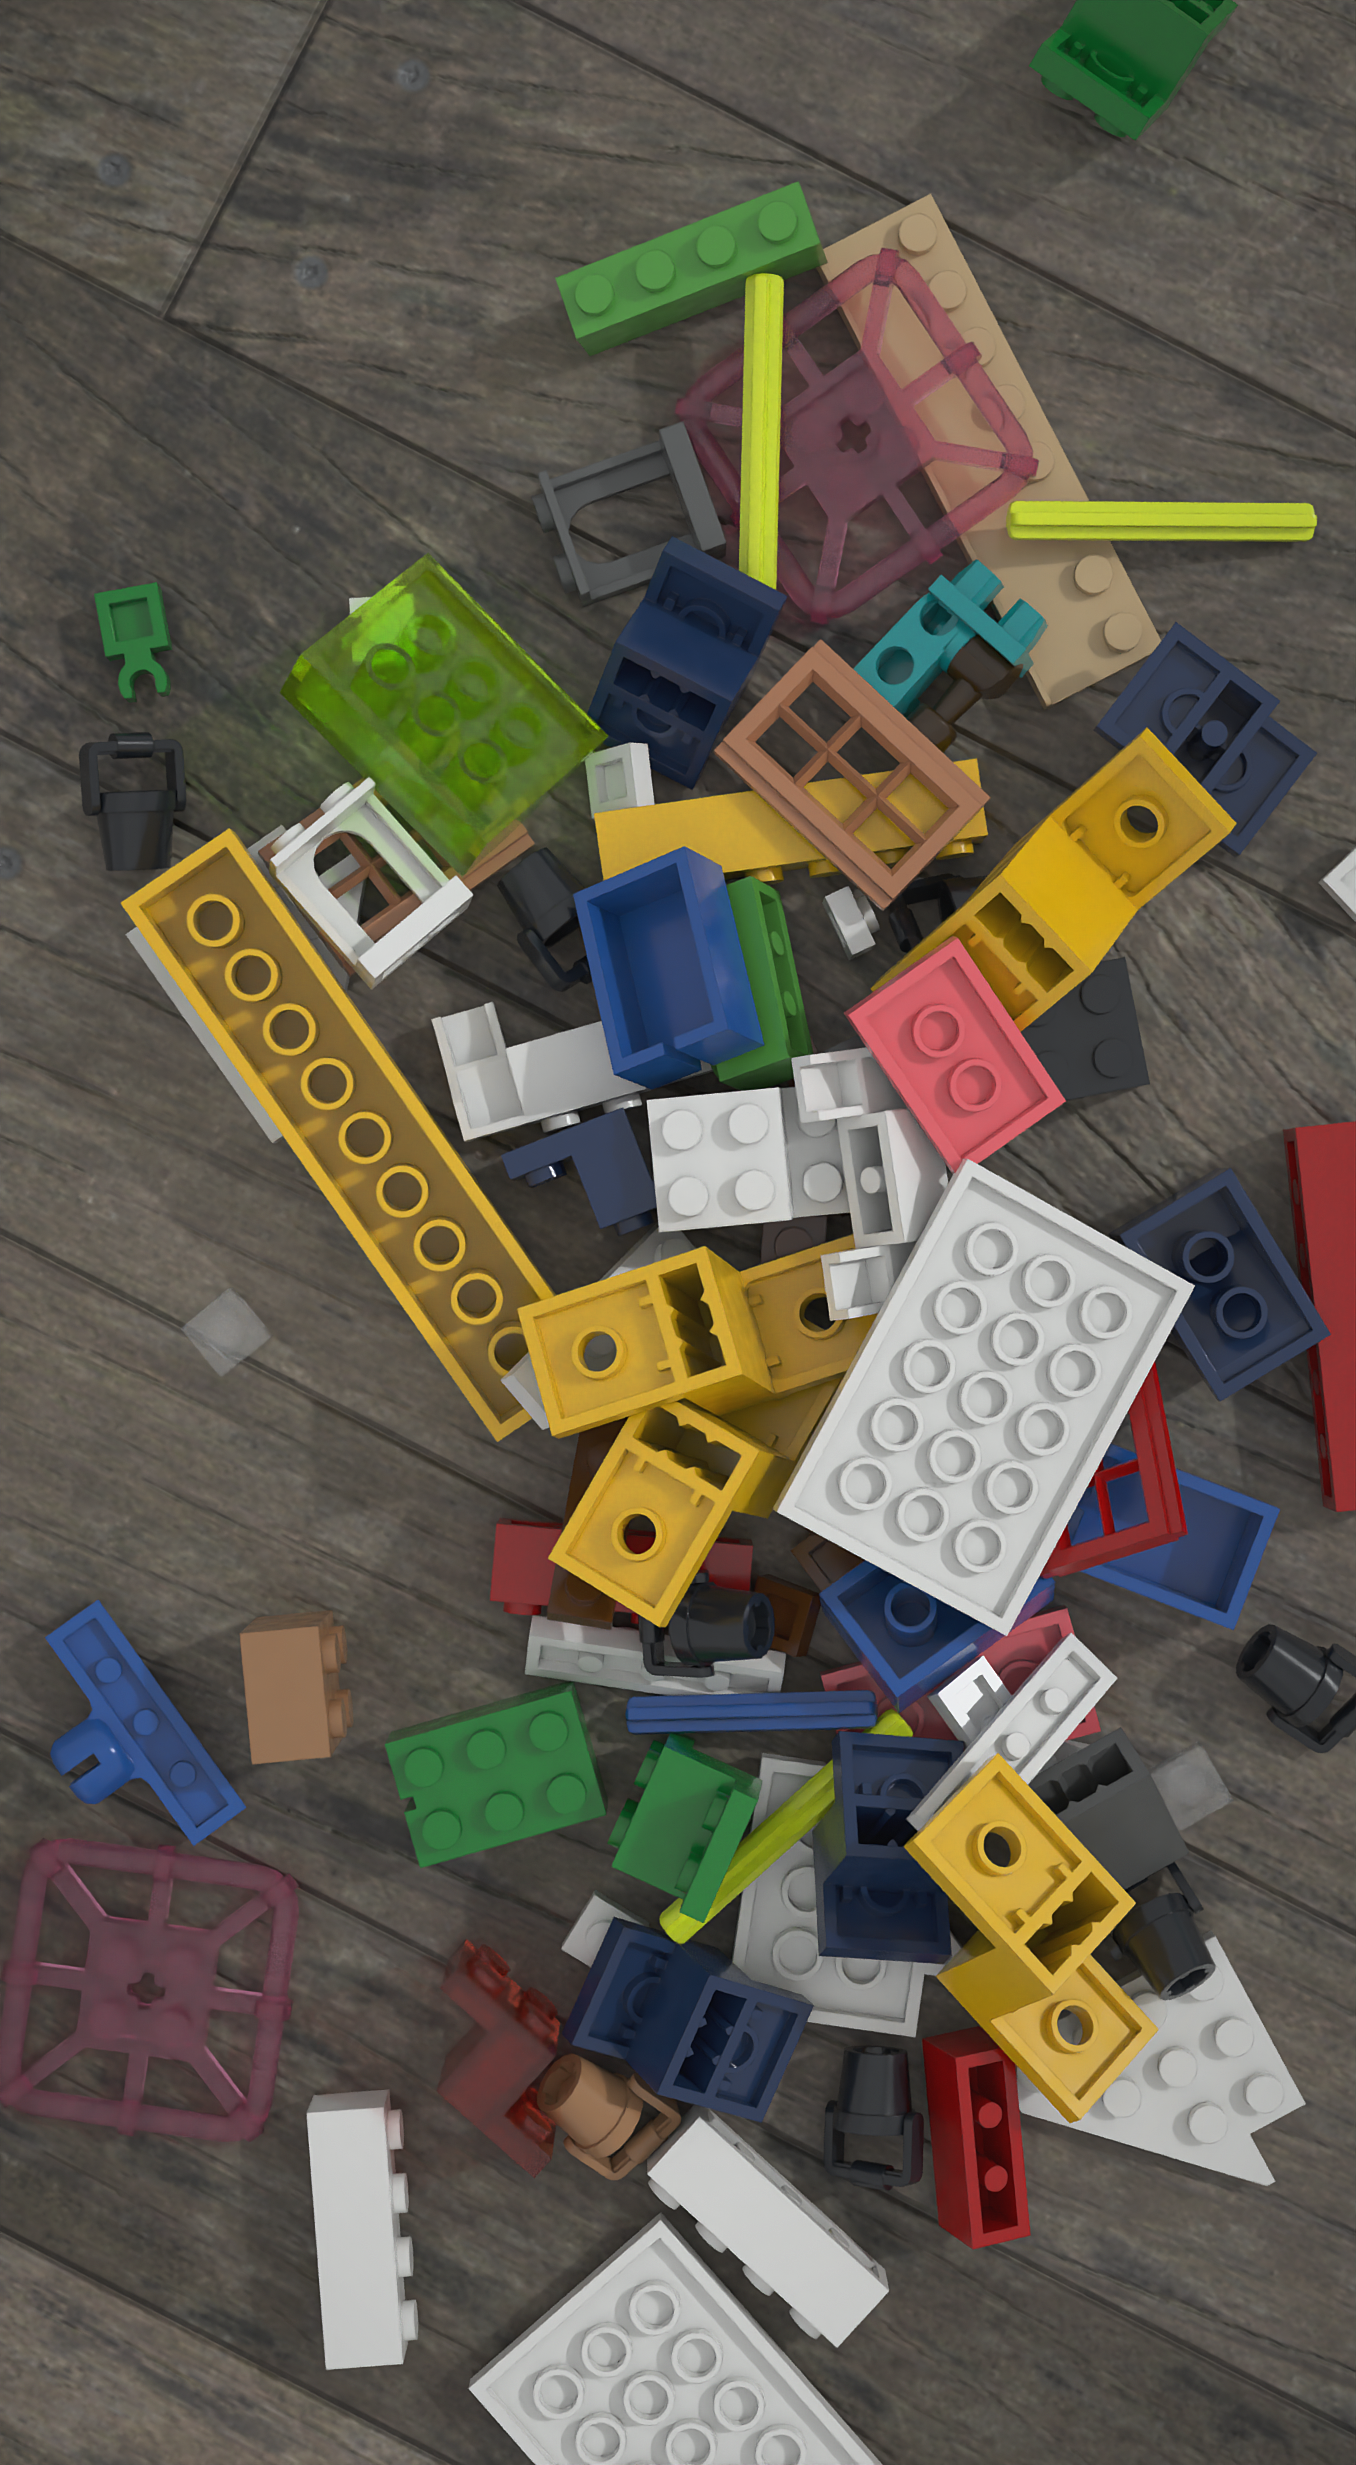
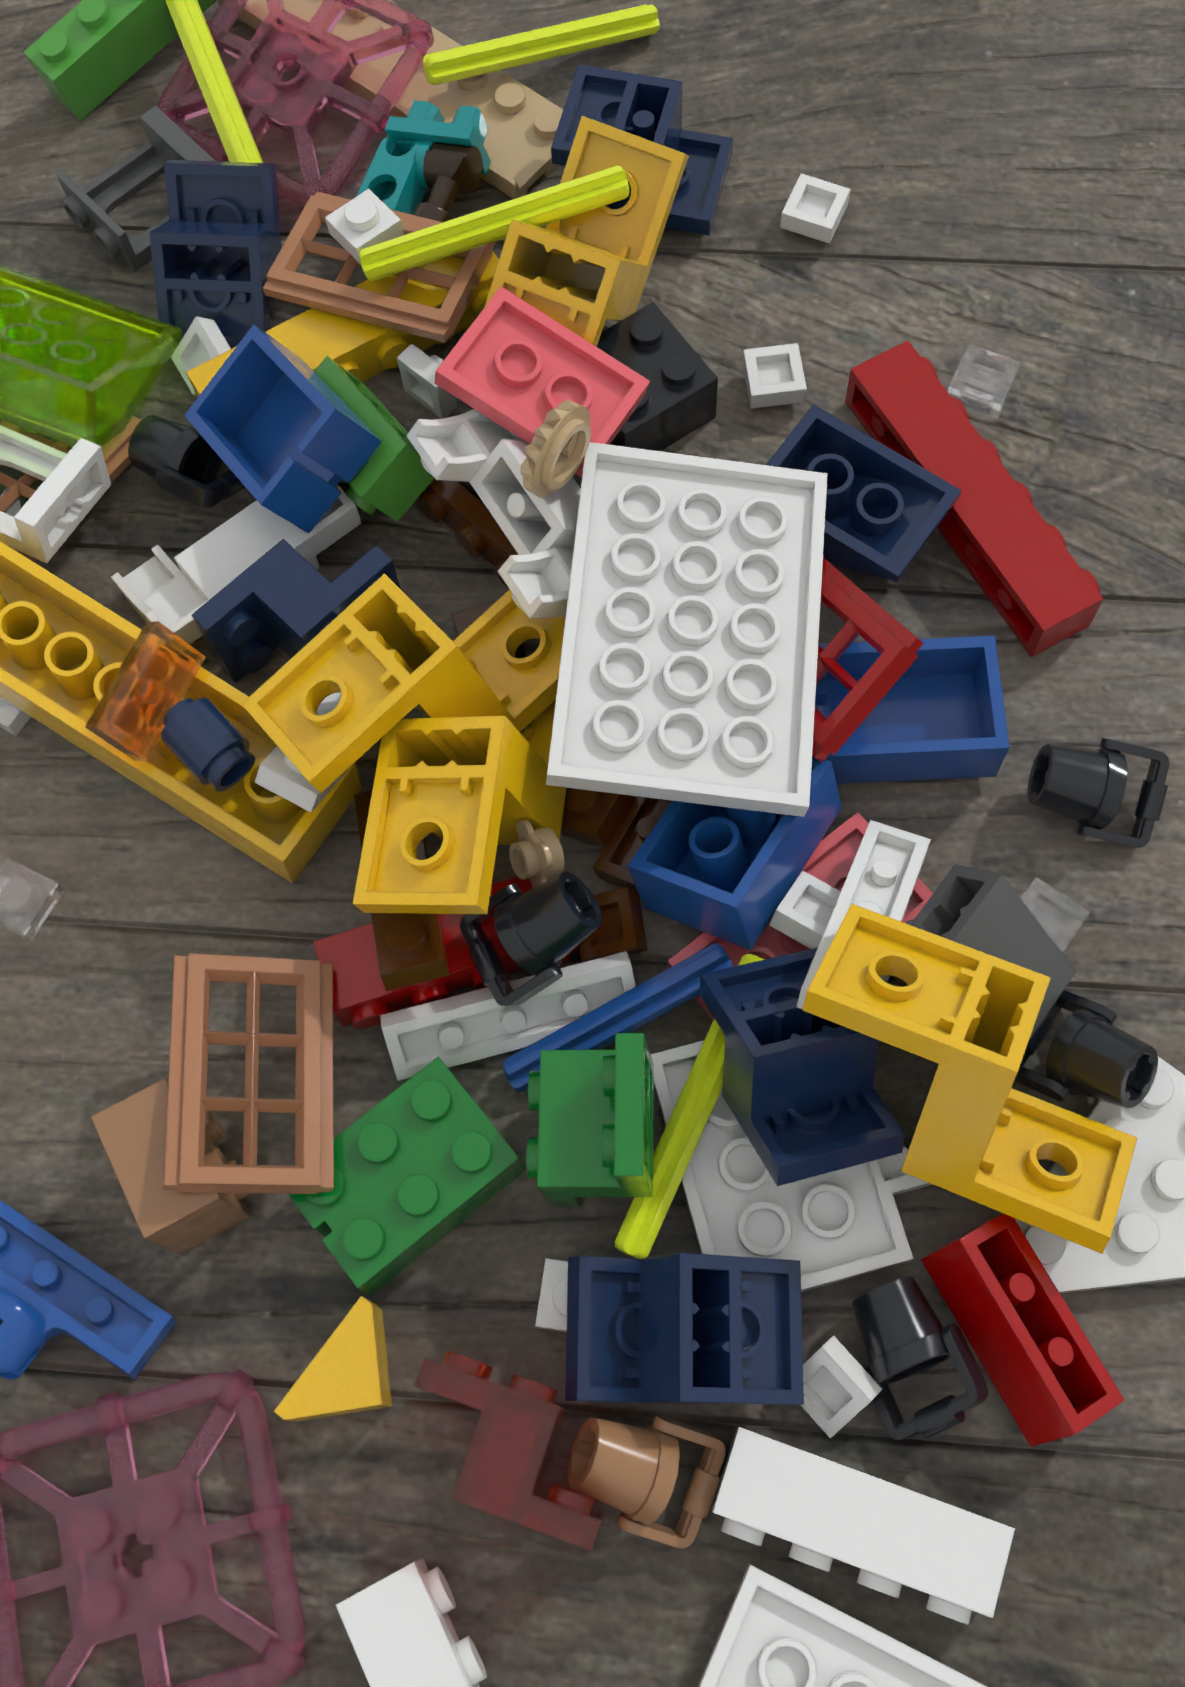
camera: 15 degrees left, 20 degrees down
(341, 1629) = (188, 1076): none -> nougat piece
(379, 1923) = (347, 1371): none -> yellow slope
(428, 1228) = (144, 690): none -> clear orange plate
(468, 1307) = (207, 743): none -> dark blue brick
(740, 1545) = (536, 854): none -> tan plate
(742, 1160) = (427, 540): white bracket -> none
(798, 2112) = (835, 1387): none -> white plate
(853, 731) = (363, 223): none -> white plate
(930, 1172) = (556, 449): none -> tan gear
(992, 810) = (493, 223): none -> neon yellow axle
(1219, 1077) = (774, 375): none -> white plate

